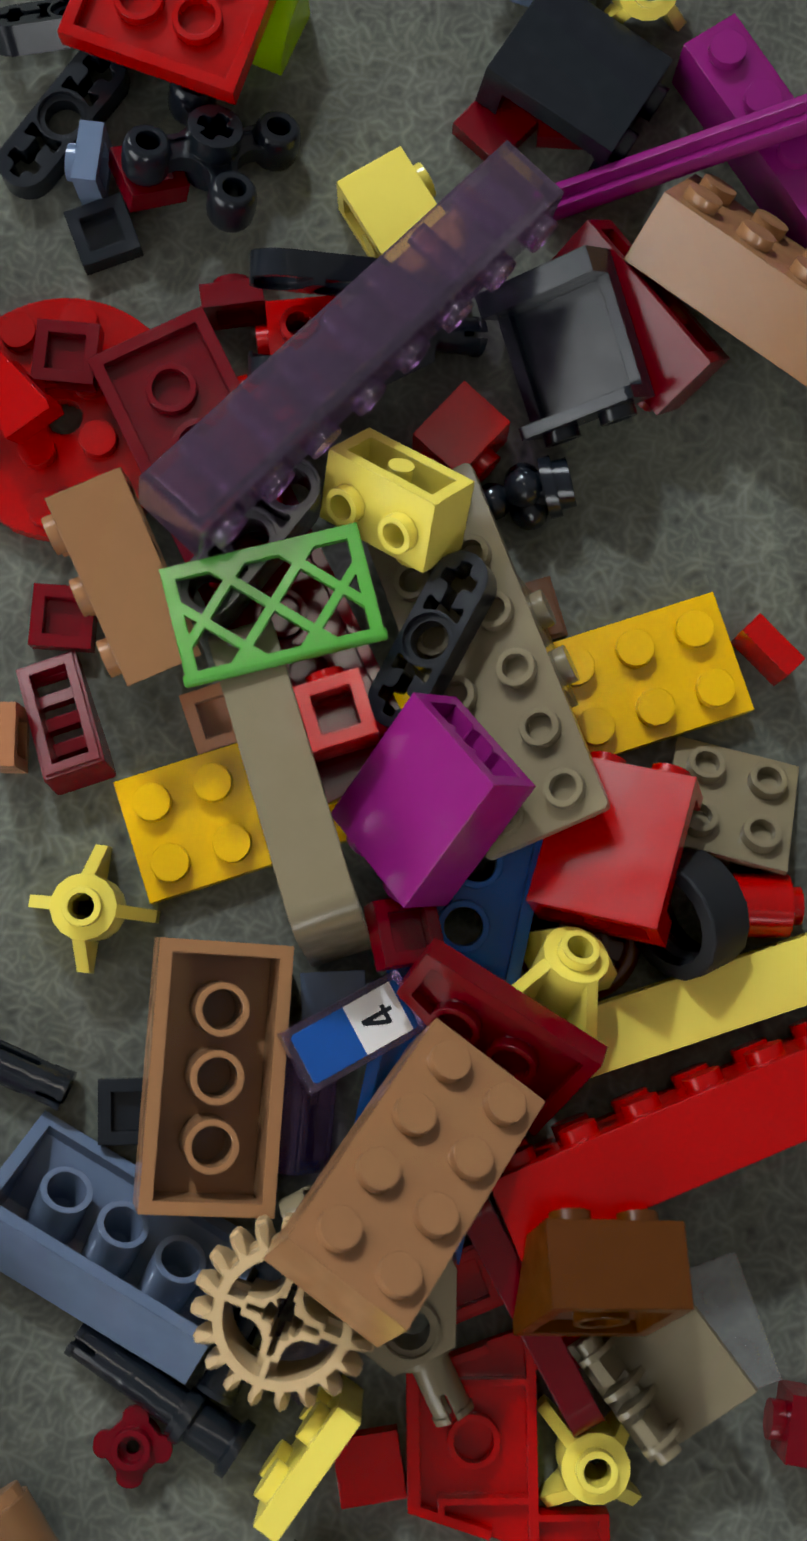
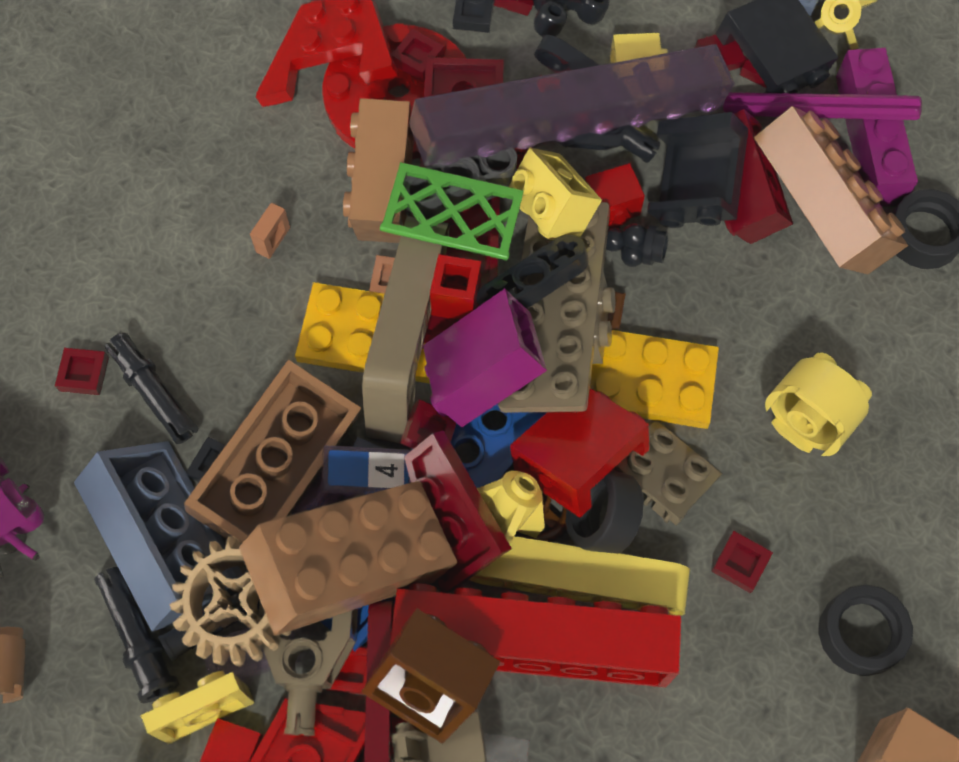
camera: 30 degrees right, 15 degrees down
(58, 621) = (331, 187): dark red tile -> none
(88, 753) = (300, 264): dark red slope -> none
(108, 912) = (259, 340): light yellow brick -> none
(129, 1465) = (111, 663): dark red plate -> none
(232, 302) = (521, 67): dark red plate -> none
(767, 650) = (734, 393): red tile -> none
(771, 904) = (657, 536): red brick -> none

